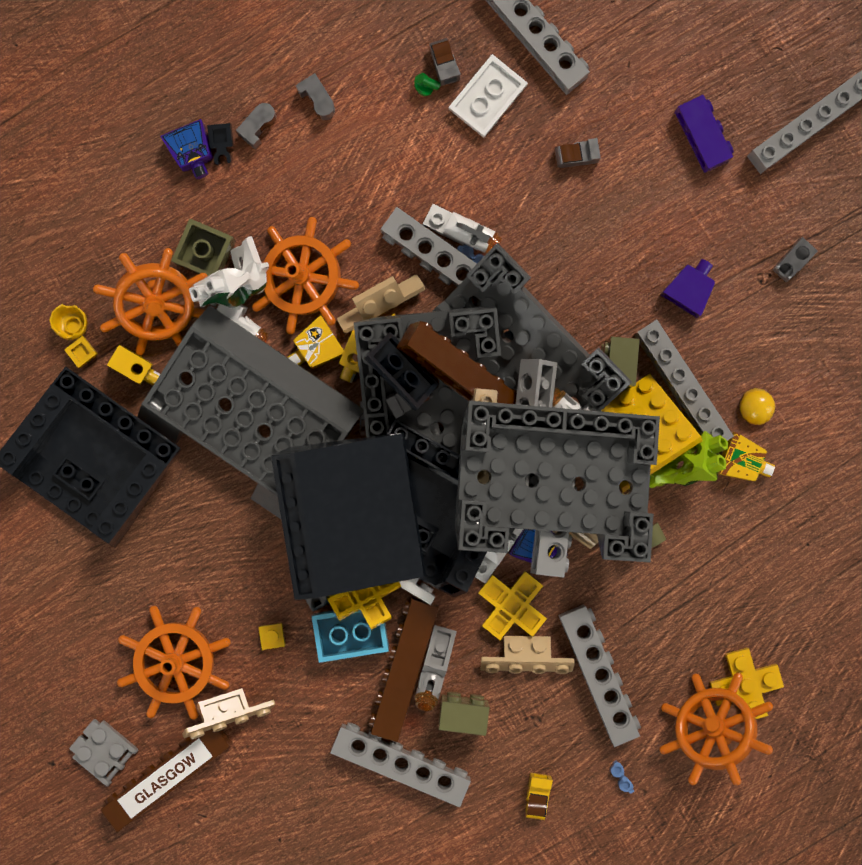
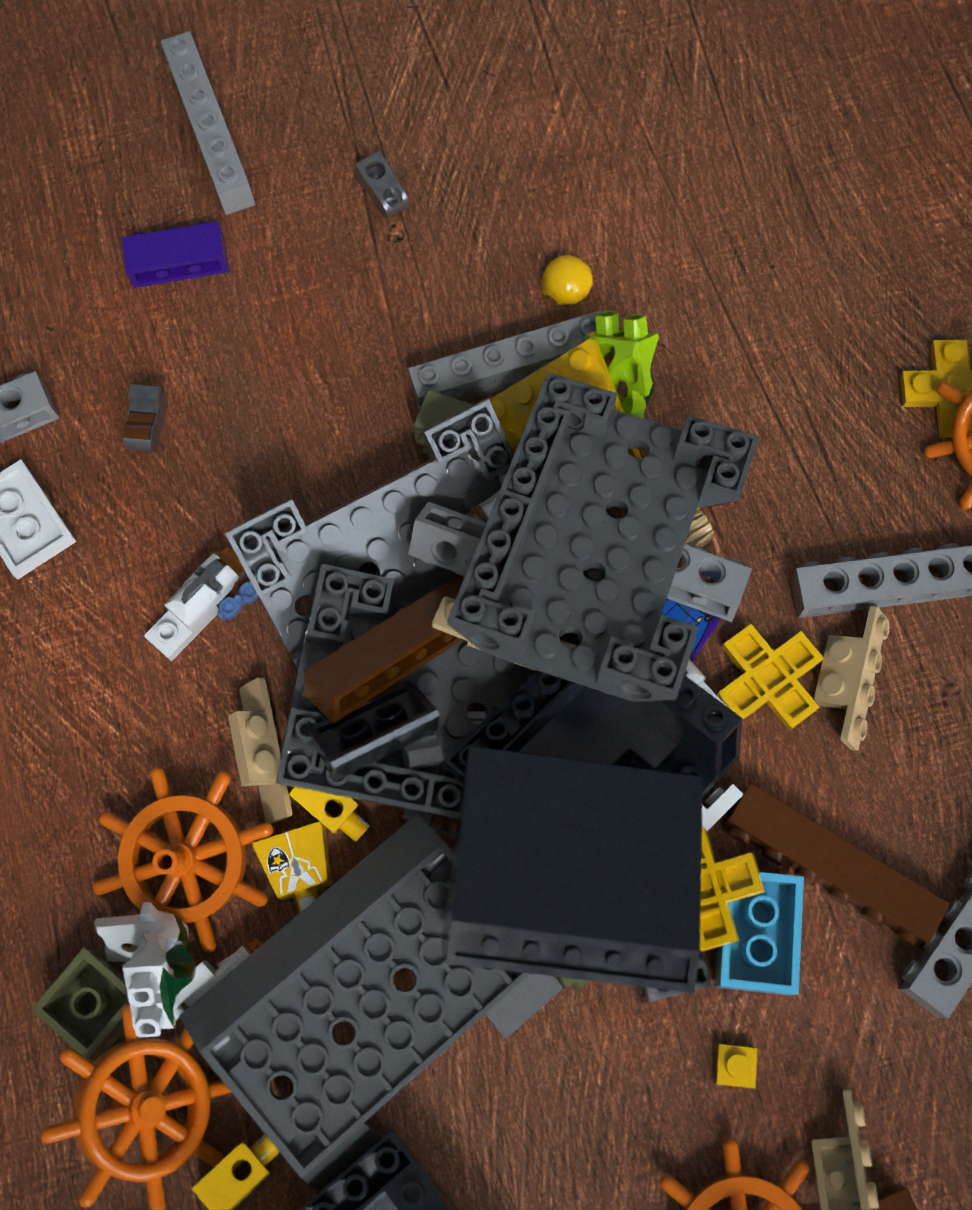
camera: 65 degrees left, 15 degrees down
(401, 221) = (210, 641): light grey brick -> none
(434, 668) = (845, 814): light grey plate -> none
(464, 714) = (925, 788): olive brick -> none
(691, 288) = (380, 321): dark purple torso -> none
(745, 459) = (640, 298): torso -> none

